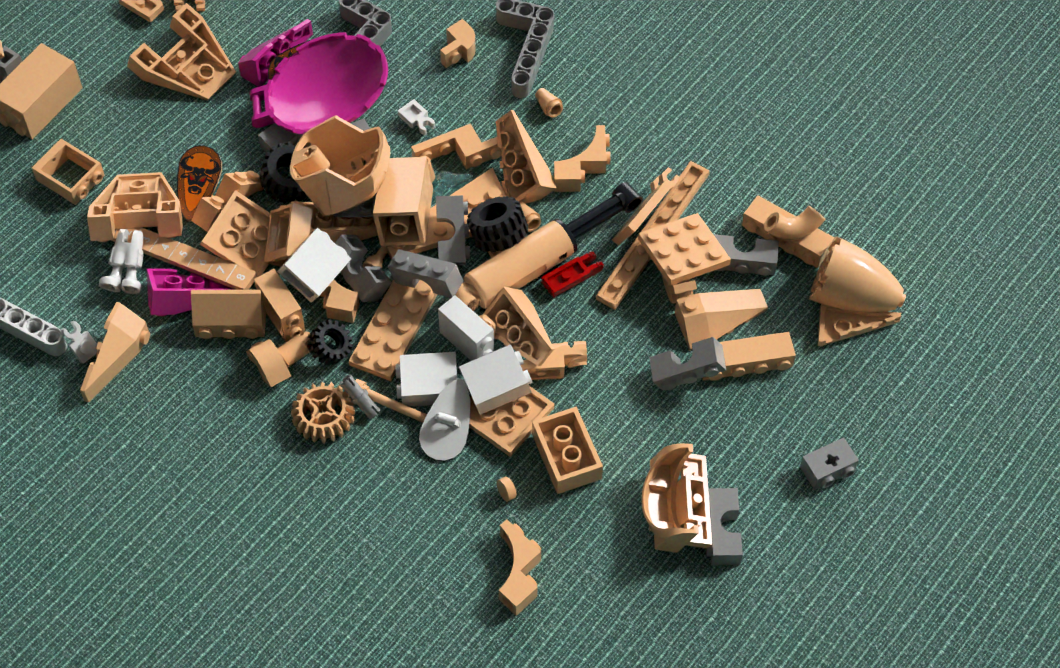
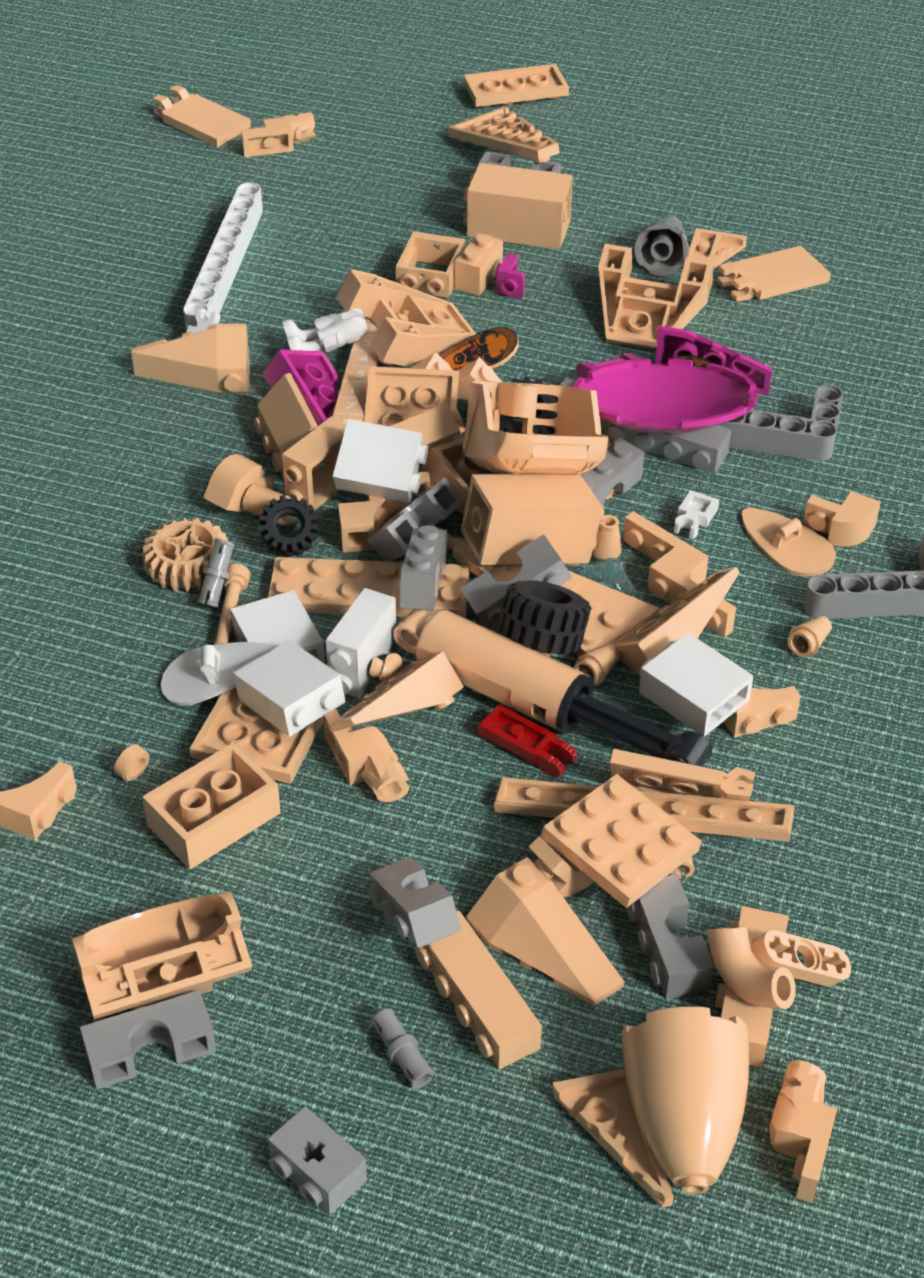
camera: 70 degrees right, 15 degrees down
(87, 139) = (478, 264): none -> light nougat brick
(112, 132) = (509, 280): none -> dark pink bracket
(130, 22) = (662, 246): none -> light grey cone
(458, 81) = (789, 542): none -> light nougat shield
(583, 169) = (695, 684): none -> white brick
(770, 404) = (402, 1048): none -> light grey pin
(786, 200) = (815, 953): none -> light nougat beam
(880, 242) = (803, 1124): none -> light nougat plate

